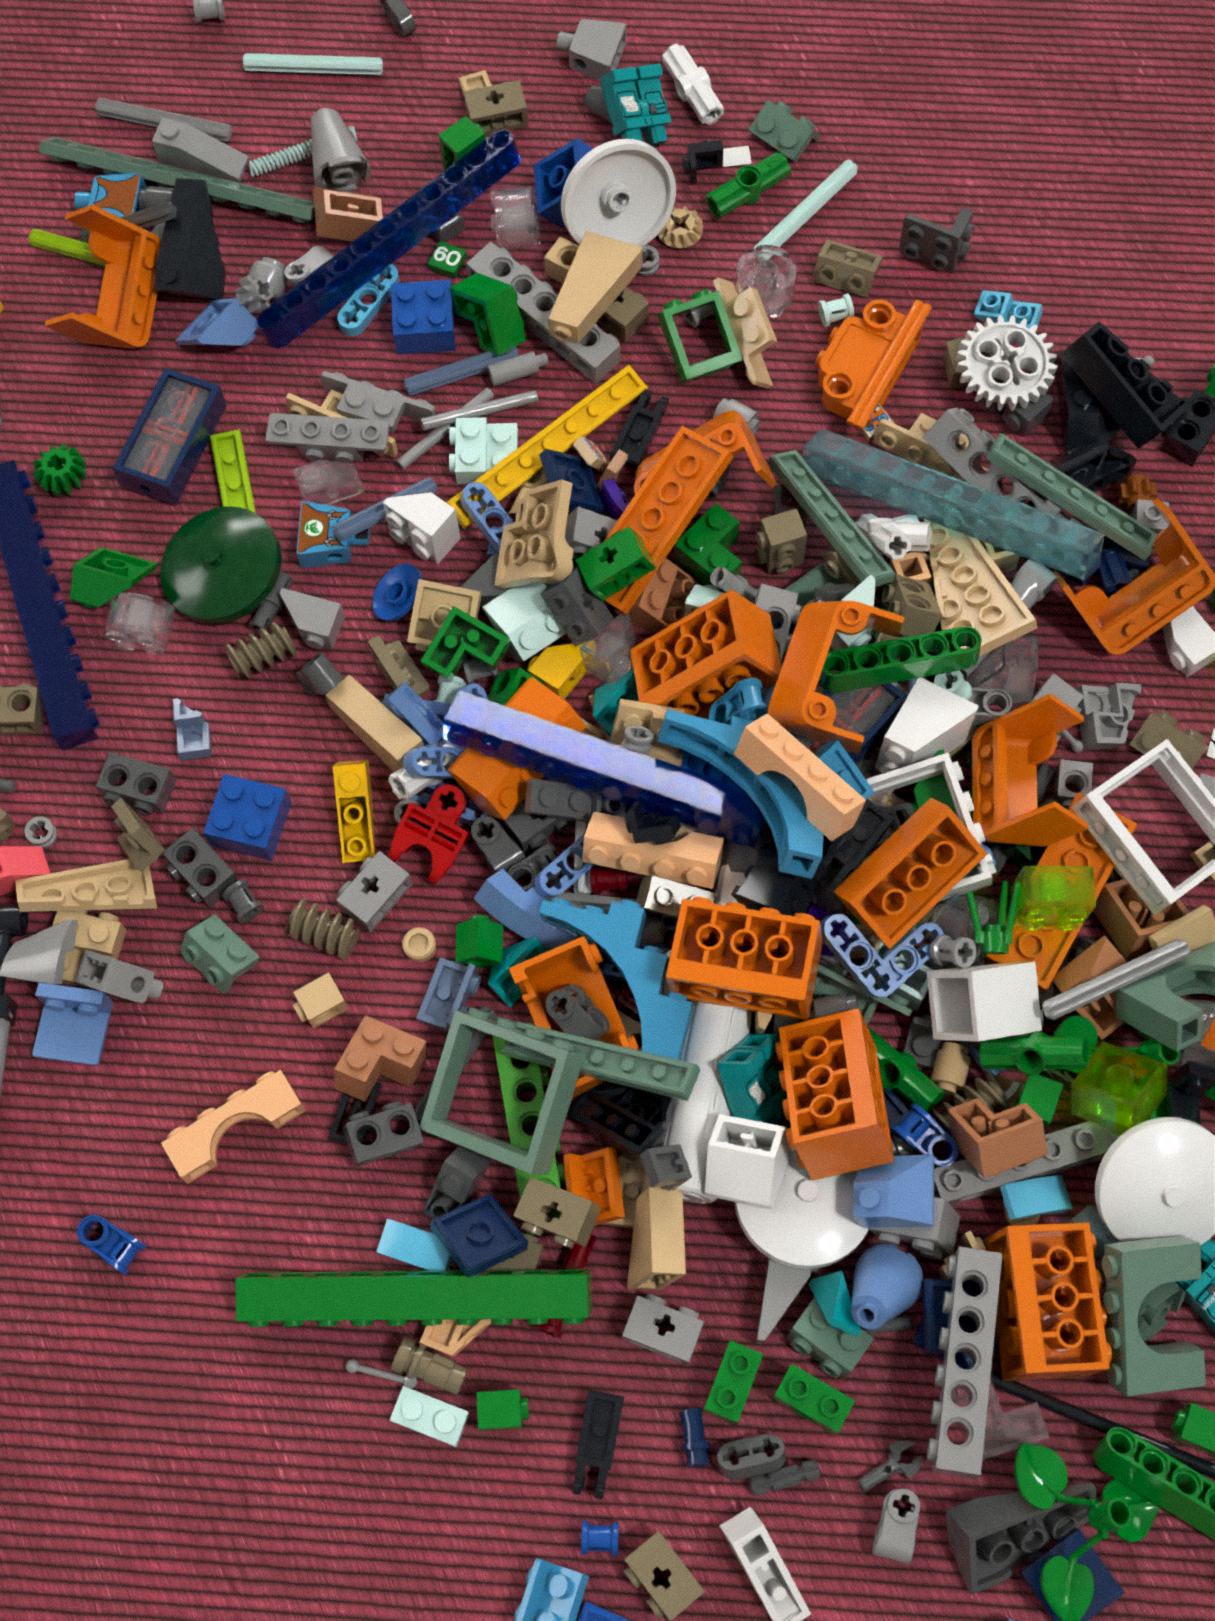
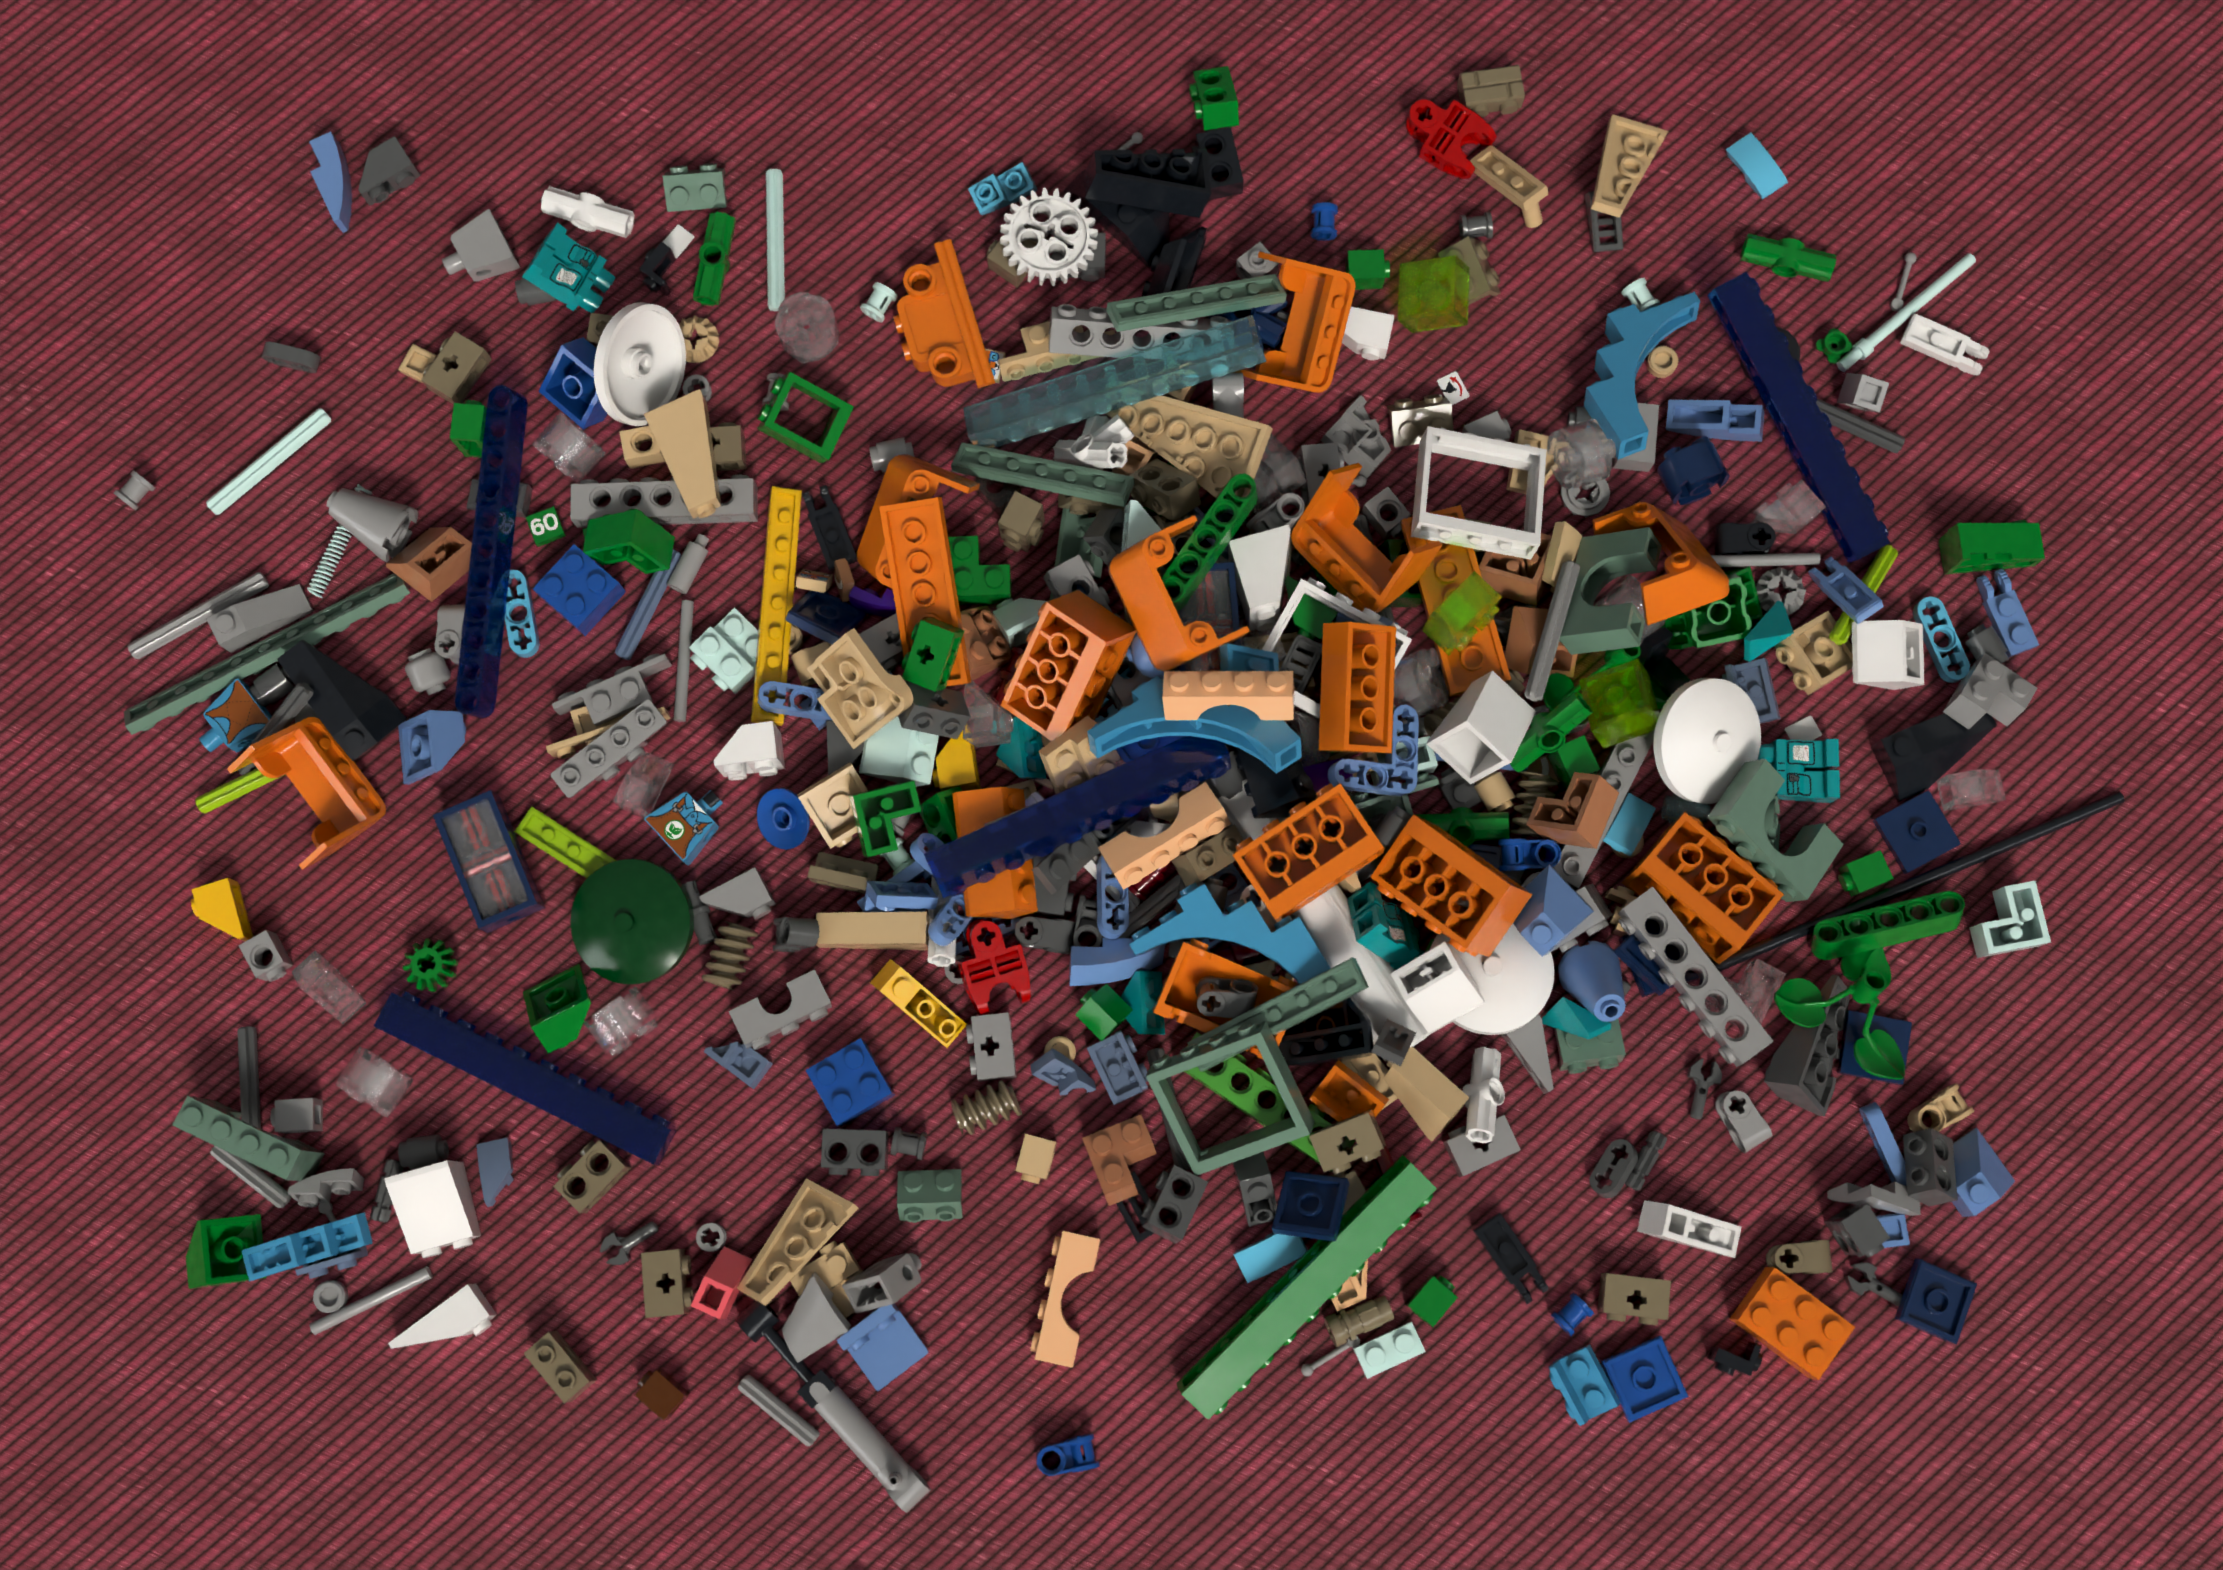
camera: 45 degrees left, 10 degrees up
(137, 837) = (789, 1174): dark tan bracket -> none
(139, 777) = (741, 1130): dark grey brick -> none
(254, 293) = (437, 693): light grey gear -> none
(278, 732) = (807, 1002): none -> light grey arch
(376, 512) = (709, 772): sand blue axle -> none
(404, 958) = (1061, 1072): none -> sand blue slope
(479, 410) = (696, 624): light grey bar -> none
(638, 739) = (1078, 762): light grey bush -> none
(658, 830) = (1156, 823): black bracket -> none
(694, 1438) = (1566, 1192): dark blue pin -> none
(702, 1288) = (1484, 1095): none -> white piece
(726, 581) = (1023, 587): light grey pin -> none
(733, 1383) = (1558, 1134): green brick -> none
(740, 701) = (1124, 677): dark azure piece -> none
(749, 327) = (833, 375): tan bracket -> none
(813, 1400) = (1617, 1094): green brick -> none
(846, 268) = (853, 259): dark tan bracket -> none
(855, 844) = (1304, 699): black hinge -> none
(935, 243) = (902, 185): dark grey bracket -> none
(953, 945) = (1431, 713): light grey bush -> none
(957, 685) = (1262, 523): light aqua bush -> none
(996, 937) = (1450, 676): green plant -> none
(1135, 488) = (1226, 251): dark orange gear -> none

